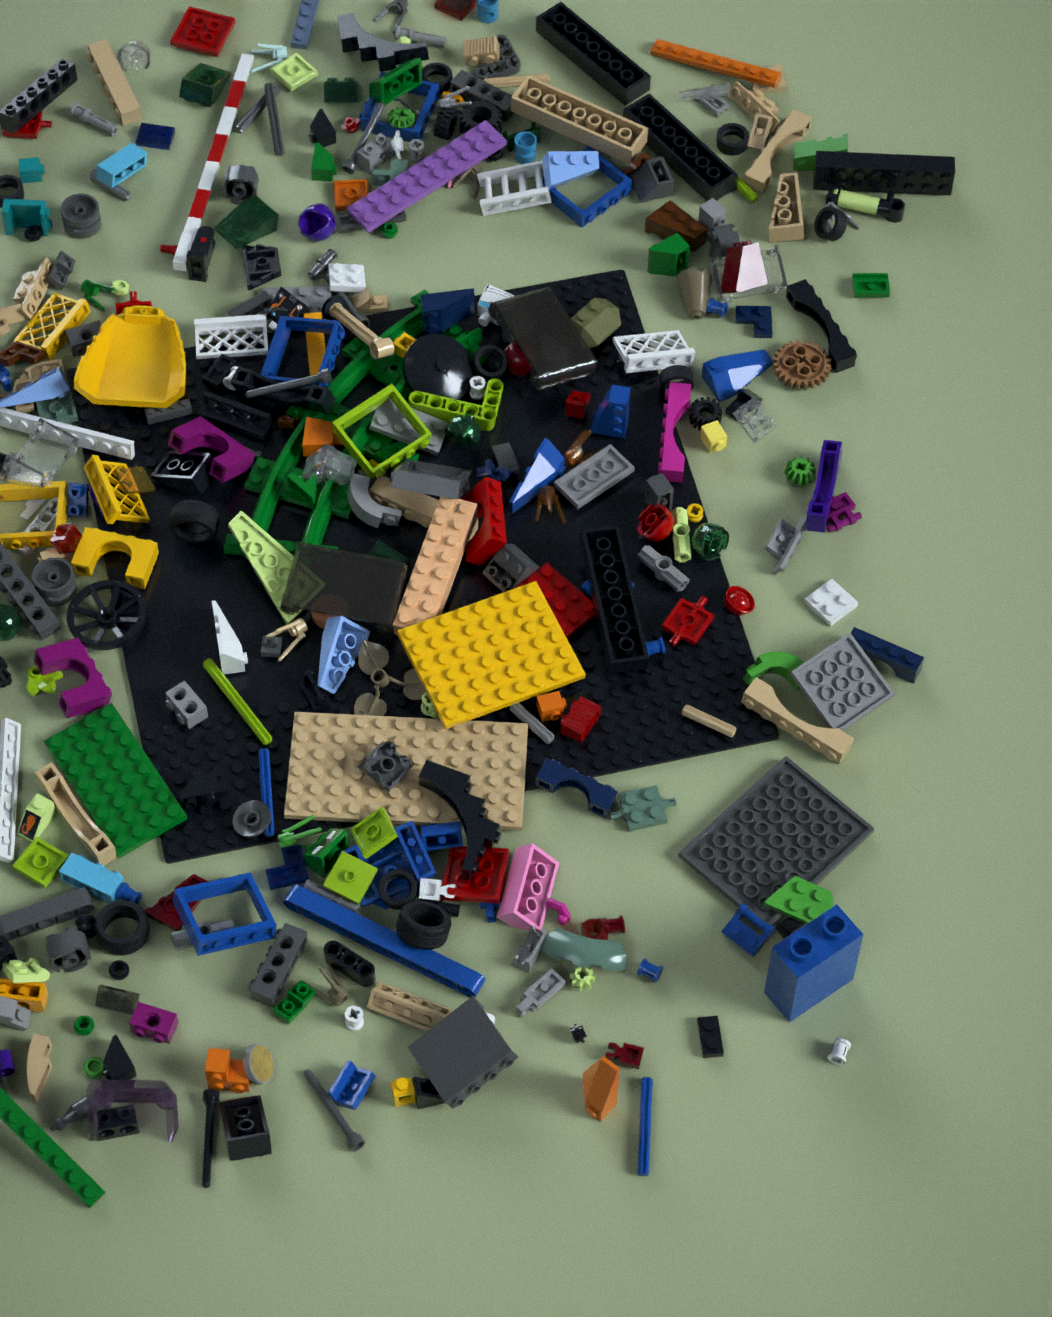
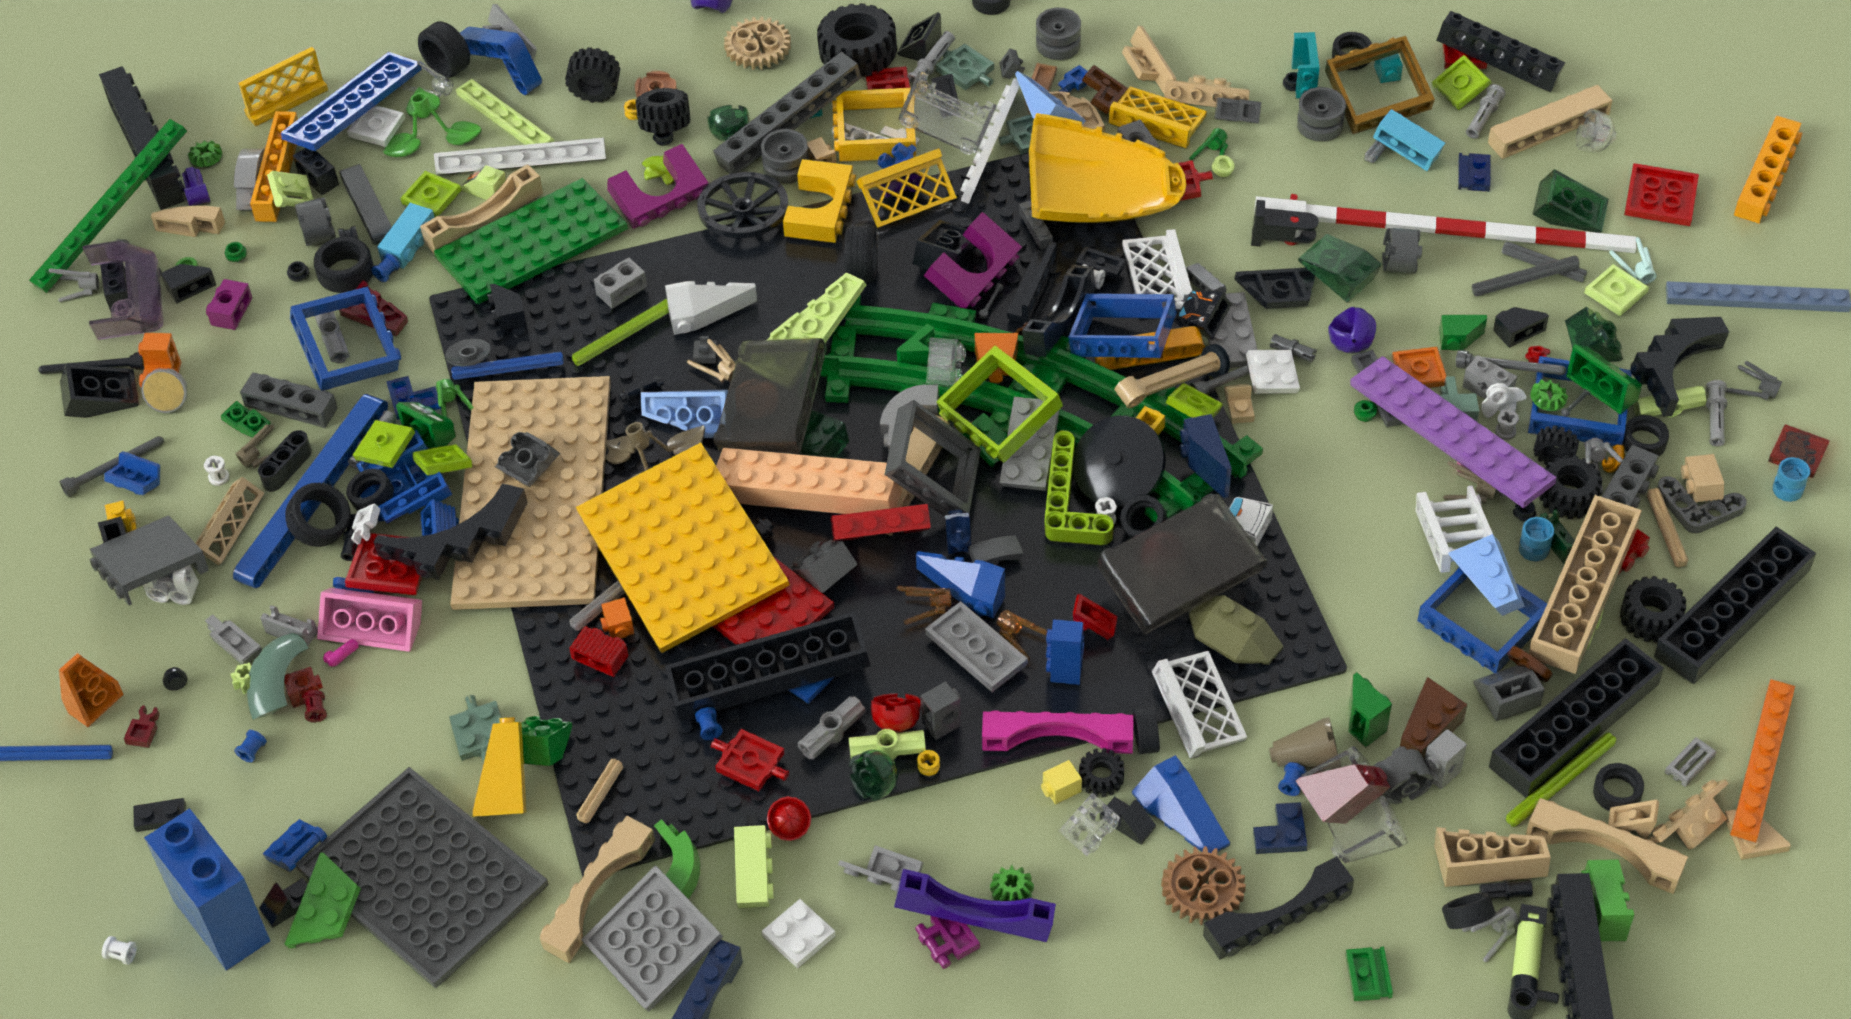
camera: 90 degrees right, 5 degrees down
(58, 148) = (1375, 52): none -> pearl gold window
(60, 127) = (1461, 82): none -> lime tile
(66, 538) = (831, 148): clear red brick -> none
(101, 1153) = (86, 280): none -> light grey plant
(116, 999) = (262, 268): clear smoke plate -> none
(134, 480) = (928, 204): clear yellow piece -> none
(323, 376) = (1074, 337): dark grey piece -> none
(385, 319) = (1193, 402): none -> lime tile
(464, 429) = (1025, 495): clear green cylinder -> none
(555, 776) = (491, 679): dark blue arch -> none
(594, 90) = (1652, 593): none -> black tyre
(662, 761) = (544, 740): none -> green slope
(699, 778) = (502, 775): none -> yellow slope
(712, 91) = (1698, 752): clear pin -> none
(779, 621) = (753, 866): none -> yellowish green wedge
(808, 207) = (1507, 889): none -> black axle

